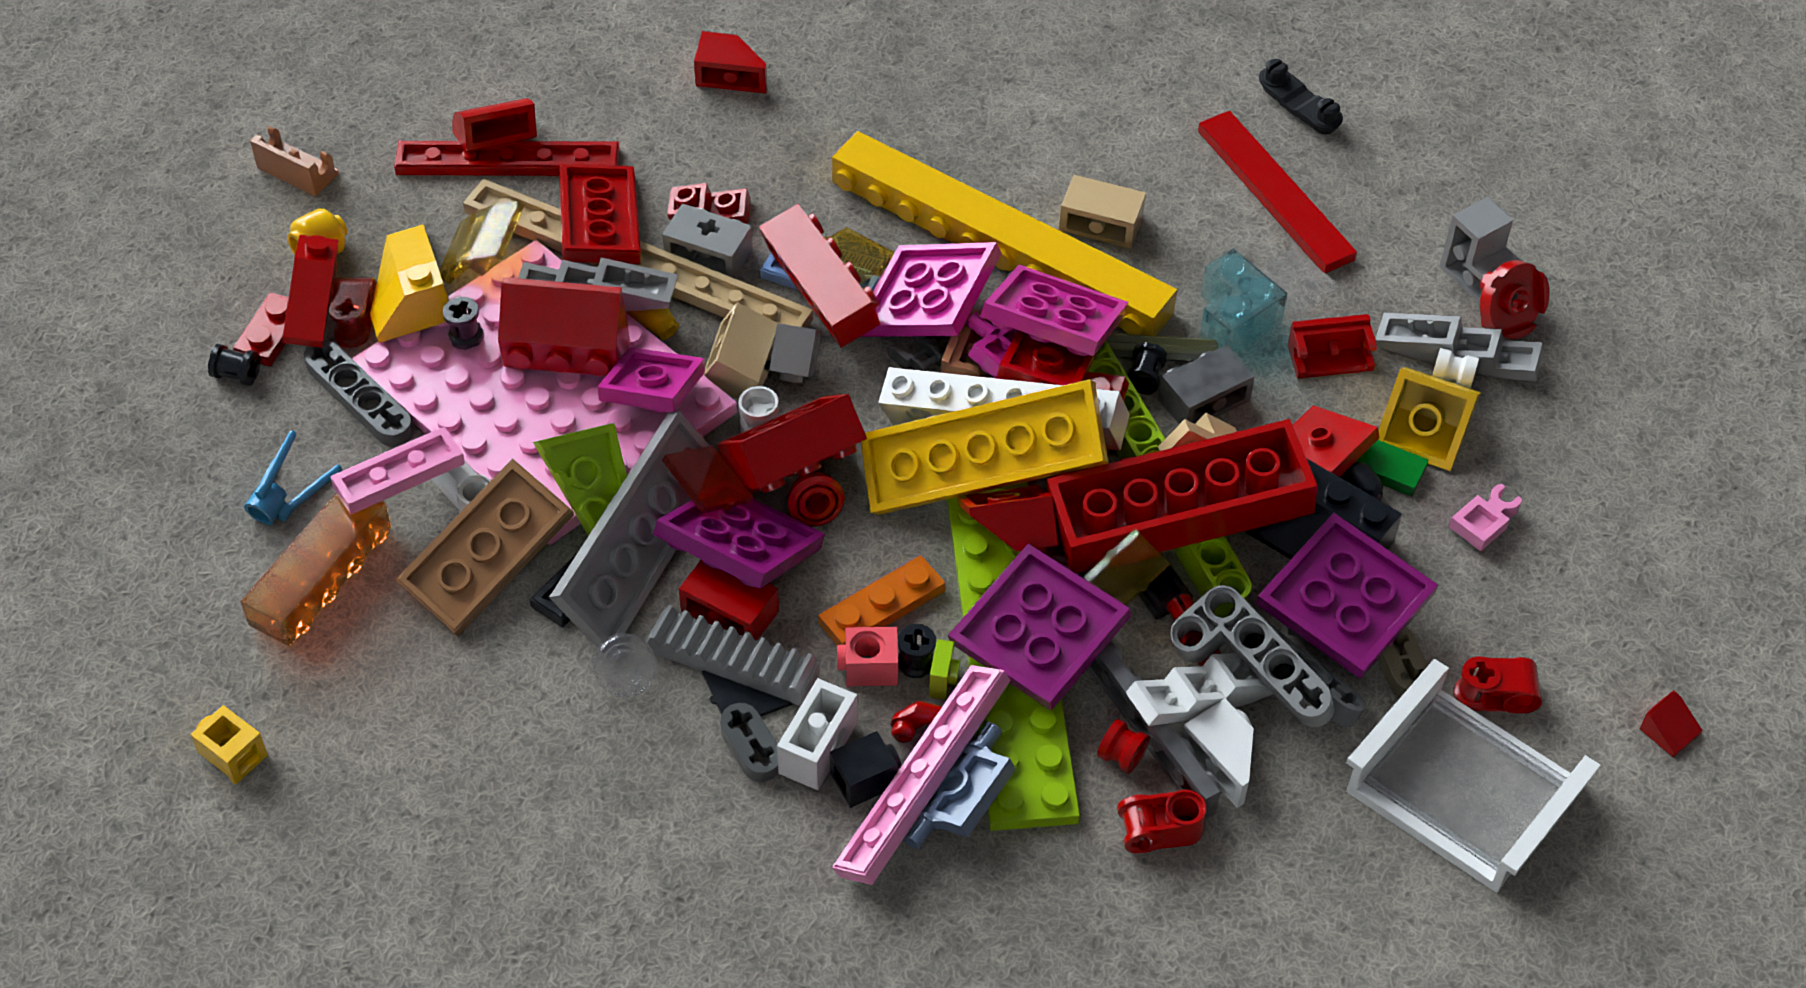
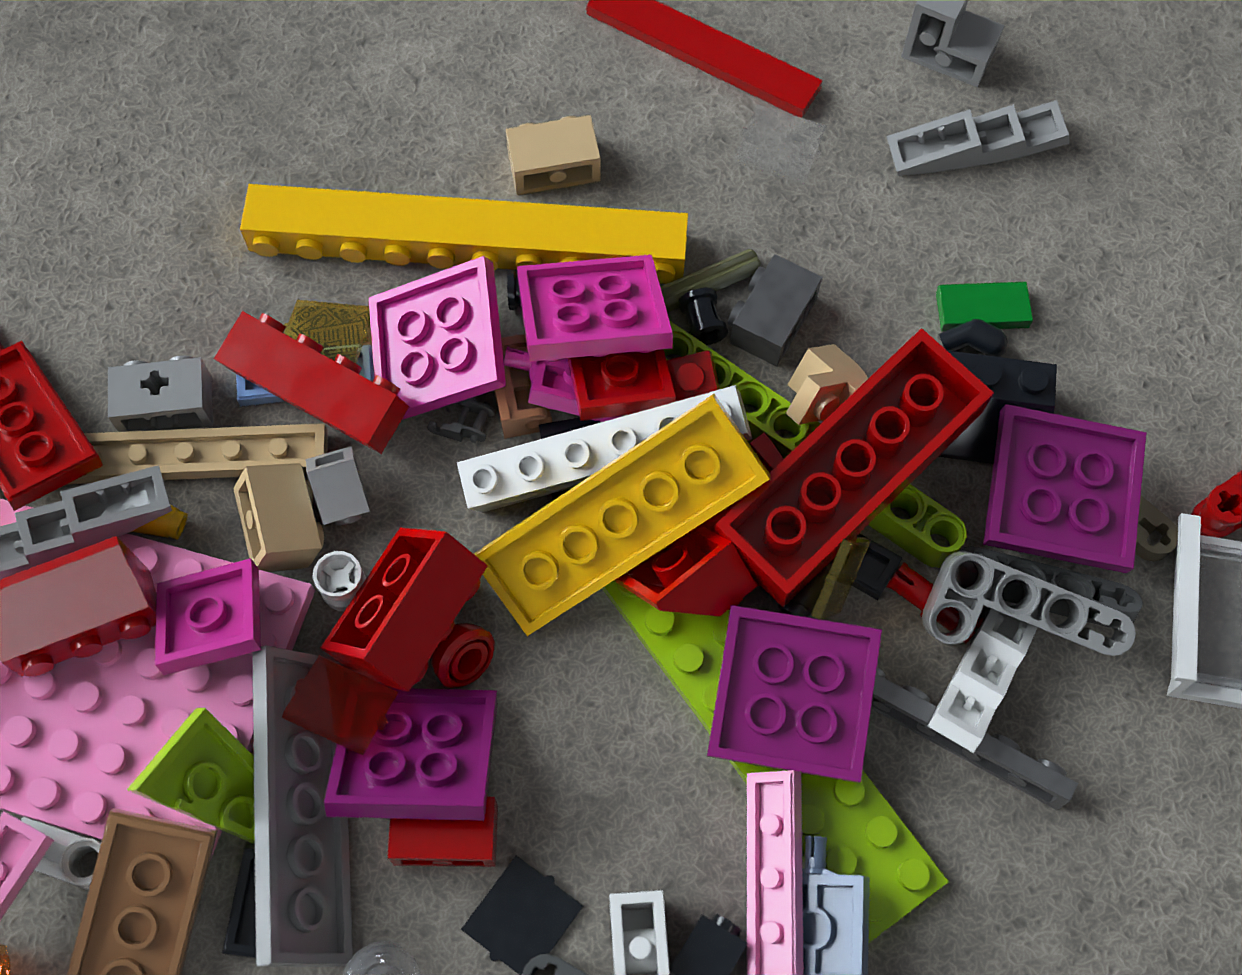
camera: 30 degrees left, 15 degrees up
(728, 64) = (55, 163): red slope -> none
(729, 204) = (148, 341): slope -> none
(733, 655) = (485, 895): light grey gear -> none
(869, 641) = (638, 794): coral brick -> none
(884, 600) = (600, 738): orange plate -> none
(911, 650) = (684, 769): black bush -> none
(912, 718) = (718, 857): red arm -> none
(943, 670) = (716, 788): lime plate -> none
(1123, 746) = (944, 775): red wheel -> none
(1159, 820) = (1024, 846): red piece -> none
(1224, 746) = (1043, 722): white slope -> none
(1241, 302) = (754, 190): clear light blue brick -> none
(1332, 346) = (864, 200): red hinge -> none
(1333, 438) = (927, 302): red plate -> none
(1428, 417) = (1000, 234): yellow slope -> none
(1454, 368) = (993, 171): white wheel -> none
(1484, 521) = (1112, 321): bright pink plate -> none
(1497, 294) = (1003, 65): red plate -> none

